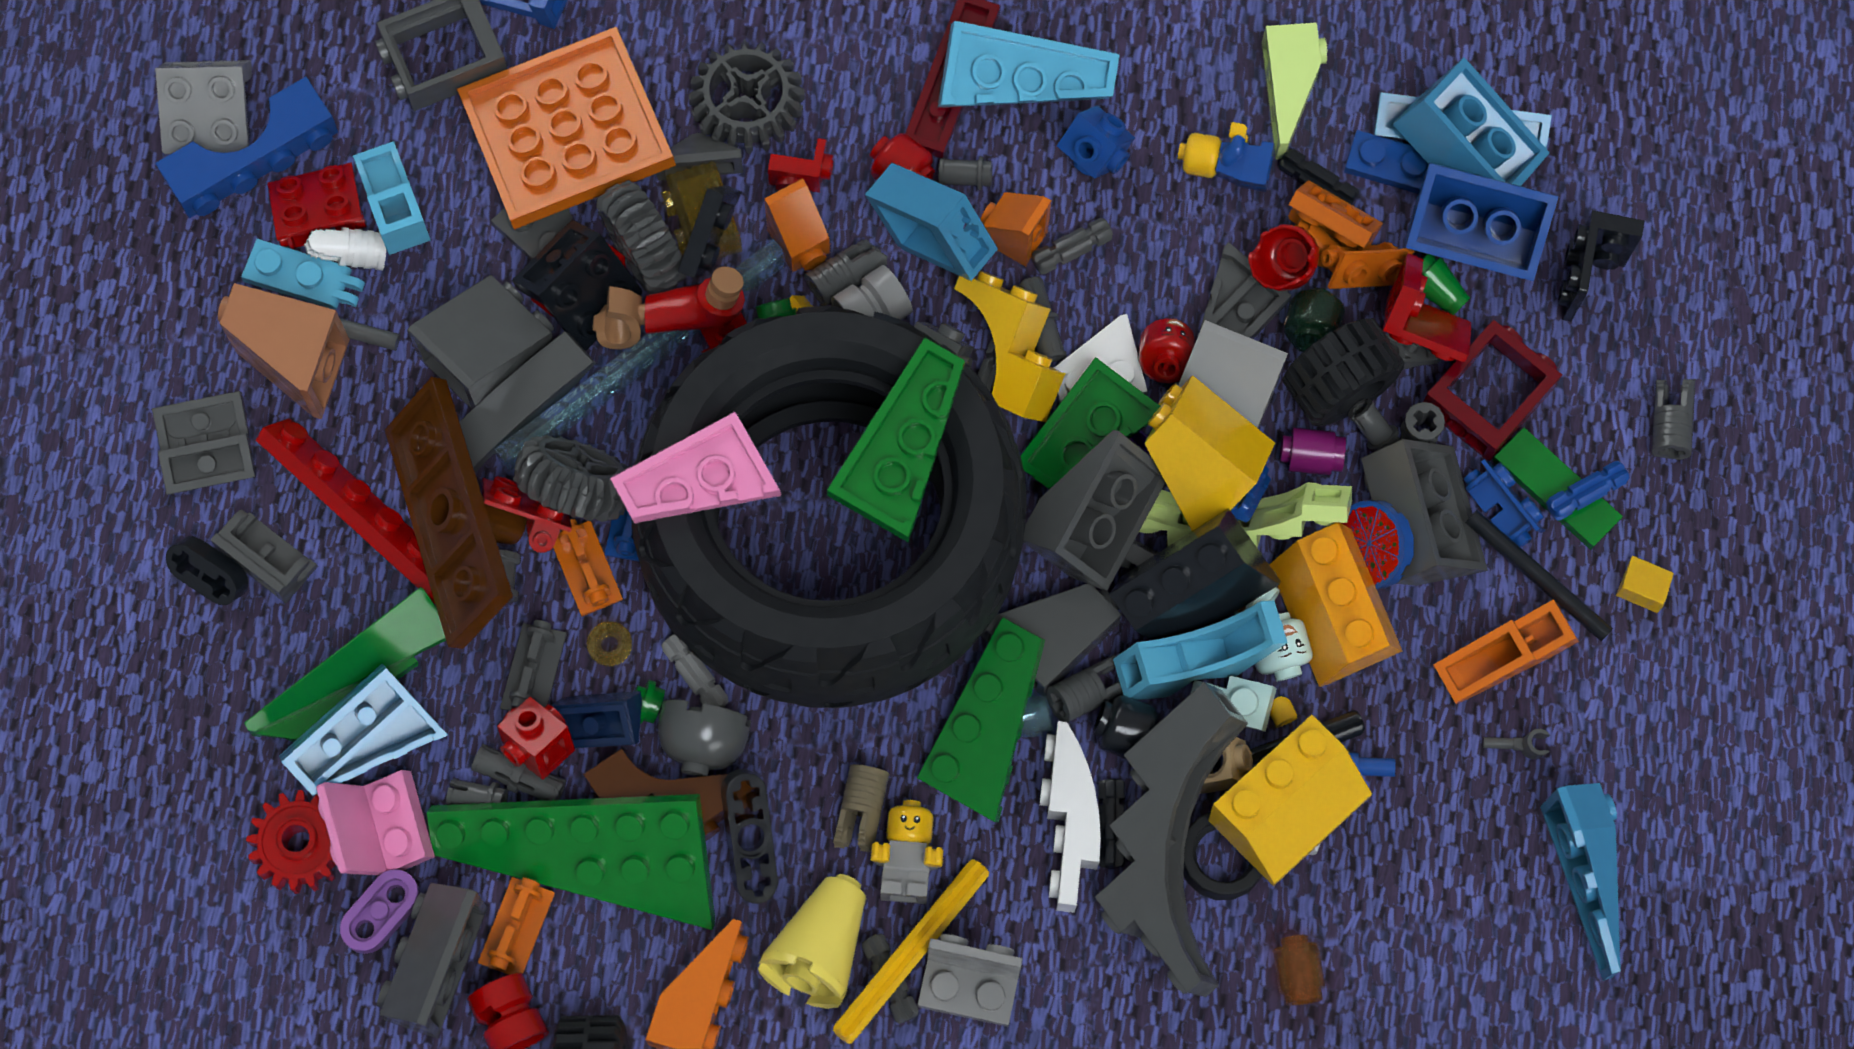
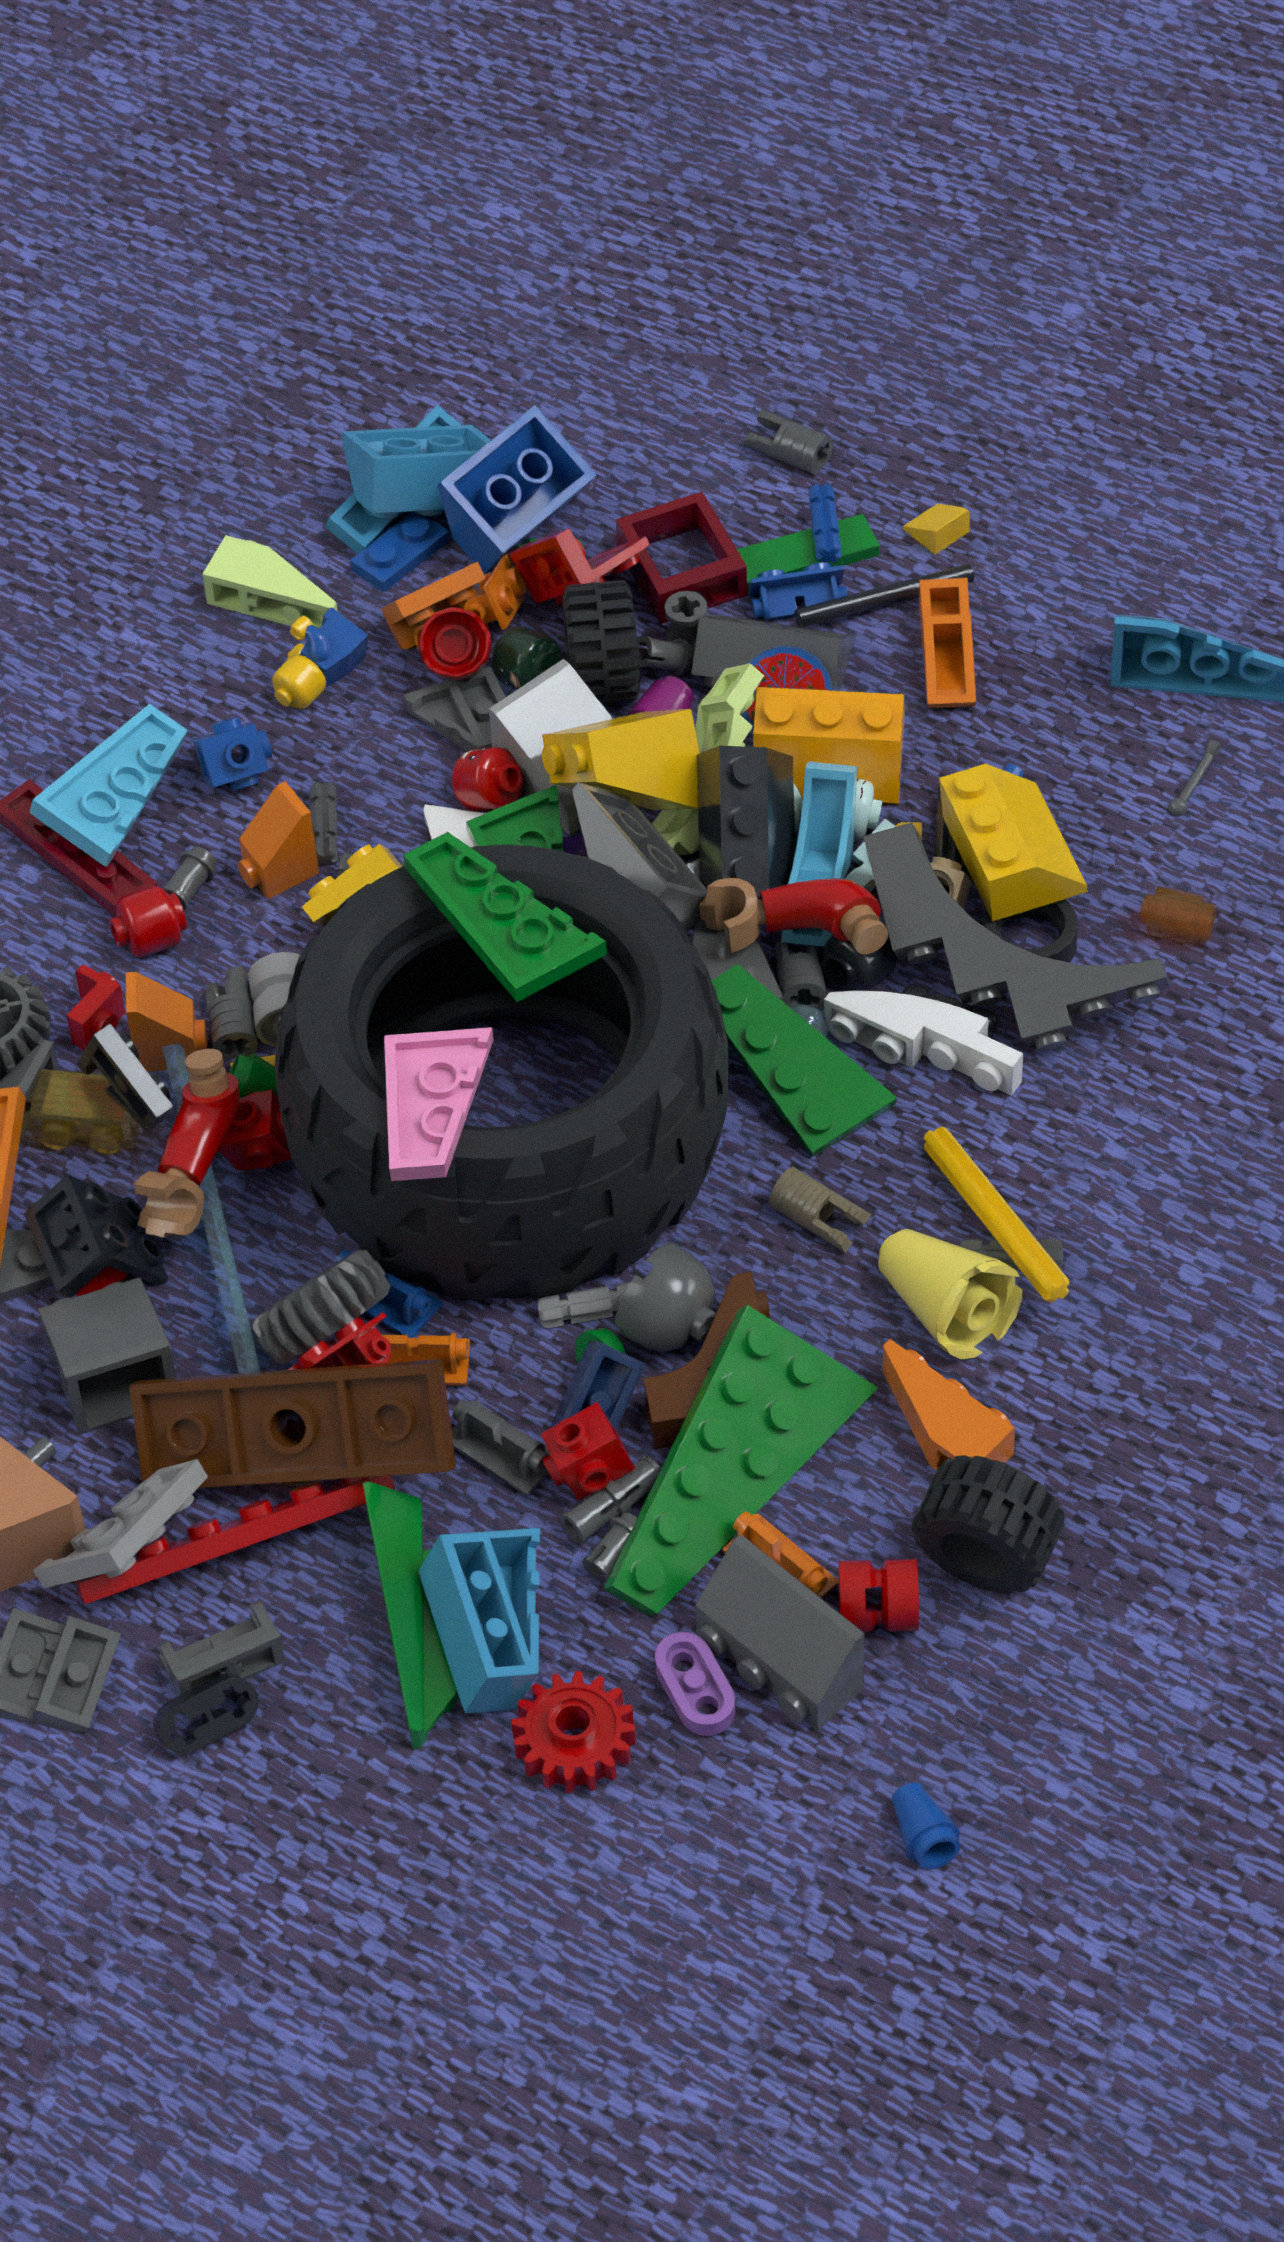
camera: 60 degrees left, 20 degrees down
(307, 437) = (137, 1522): none -> light grey wing
(375, 825) = (601, 1633): bright pink bracket -> none
(524, 396) = (187, 1317): dark grey slope -> none
(599, 634) = (512, 1355): clear yellow plate -> none
(641, 237) = (87, 1145): dark grey gear -> none
(756, 802) = (837, 1310): black beam -> none
(907, 857) = (895, 1187): piece -> none
(930, 221) = (217, 880): dark azure window -> none
(970, 980) = (1046, 1176): light grey bracket -> none
(1135, 689) = (826, 904): none -> piece
(1294, 164) = (370, 612): black axle -> none
(1431, 920) = (1178, 805): none -> dark grey hinge
(1519, 744) = (1044, 670): dark grey hand -> none
(1604, 242) = (601, 431): black bracket -> none

